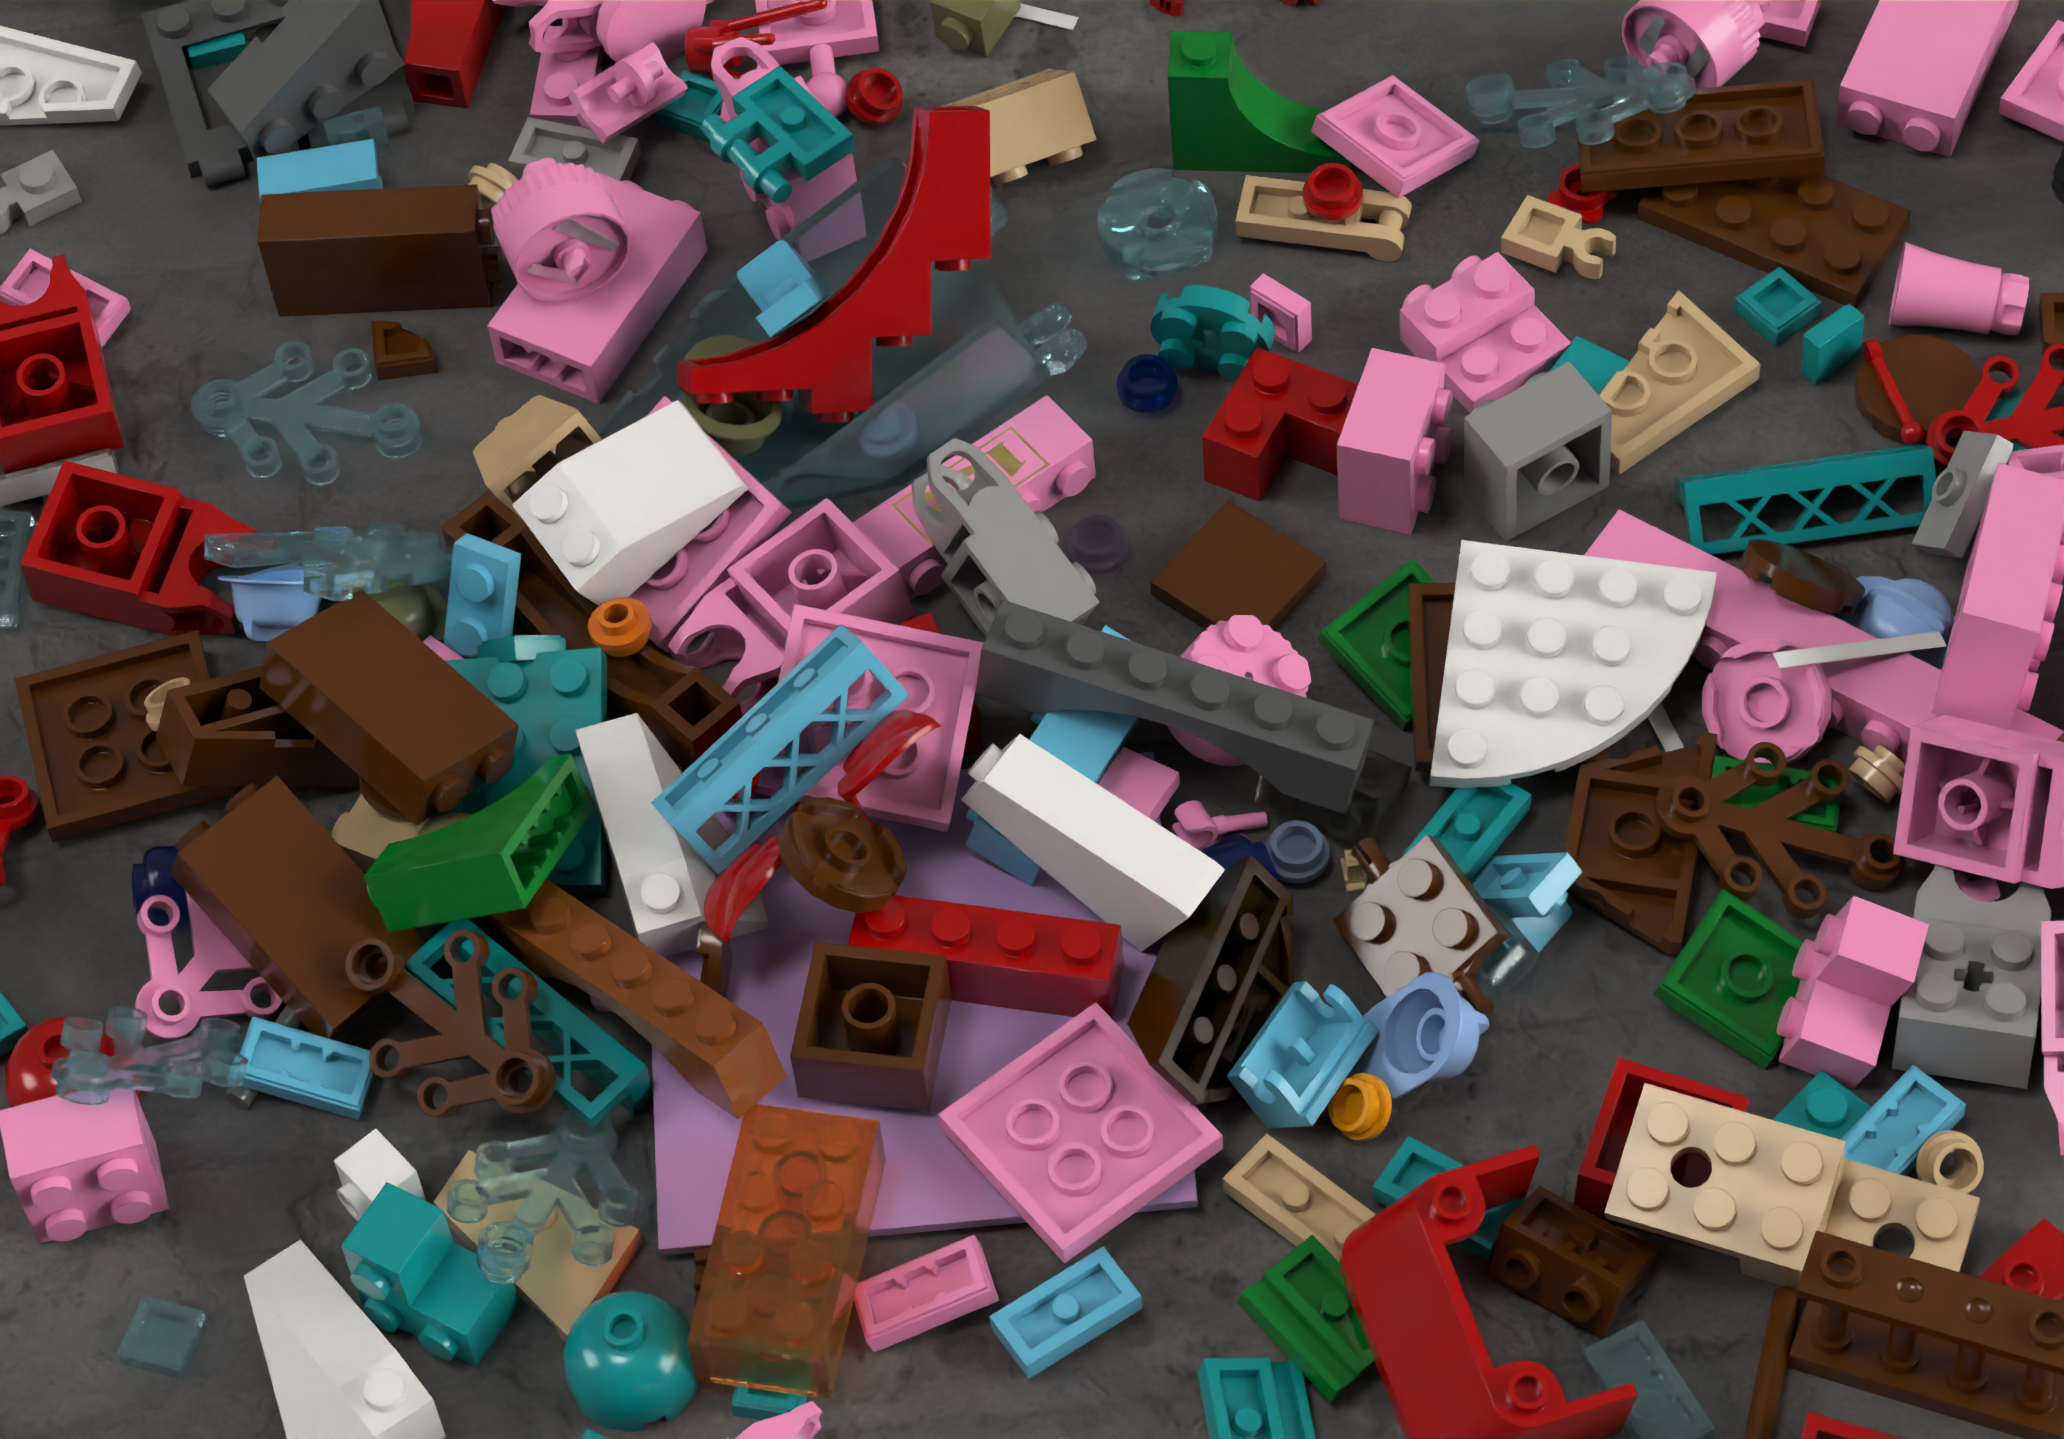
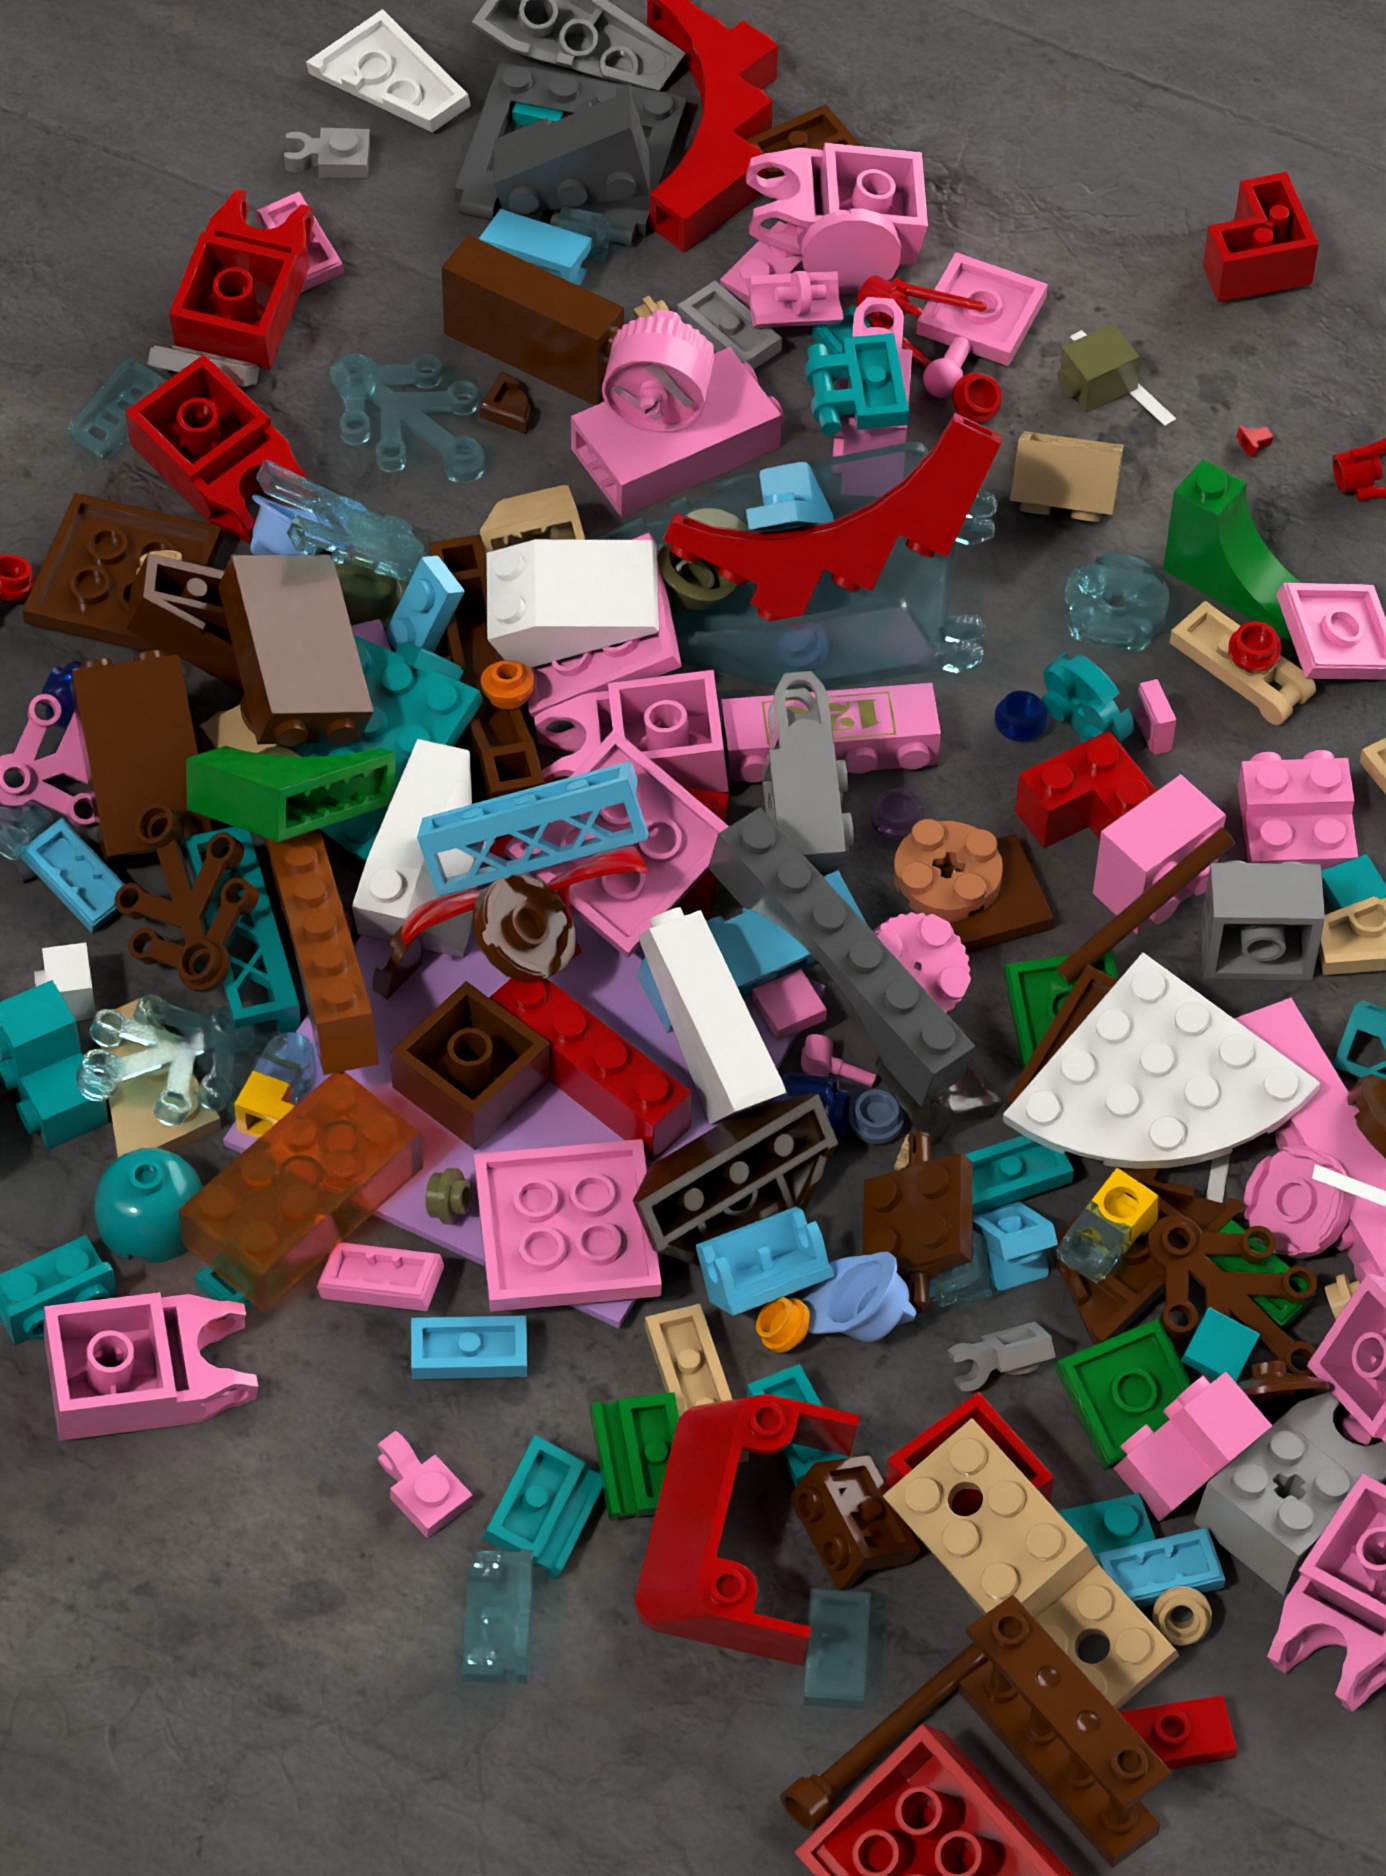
camera: 25 degrees right, 0 degrees up
(680, 1150) = (276, 1083): none -> leg
(941, 1171) = (448, 1196): none -> olive plate
(1188, 540) = (955, 844): none -> nougat plate
(1424, 496) = (1145, 905): none -> reddish brown bar
(1598, 1002) = (1009, 1350): none -> light grey plate
(1614, 826) = (1108, 1226): none -> leg
(1804, 882) = (1220, 1346): none -> teal tile
(1883, 885) = (1275, 1386): none -> reddish brown dish

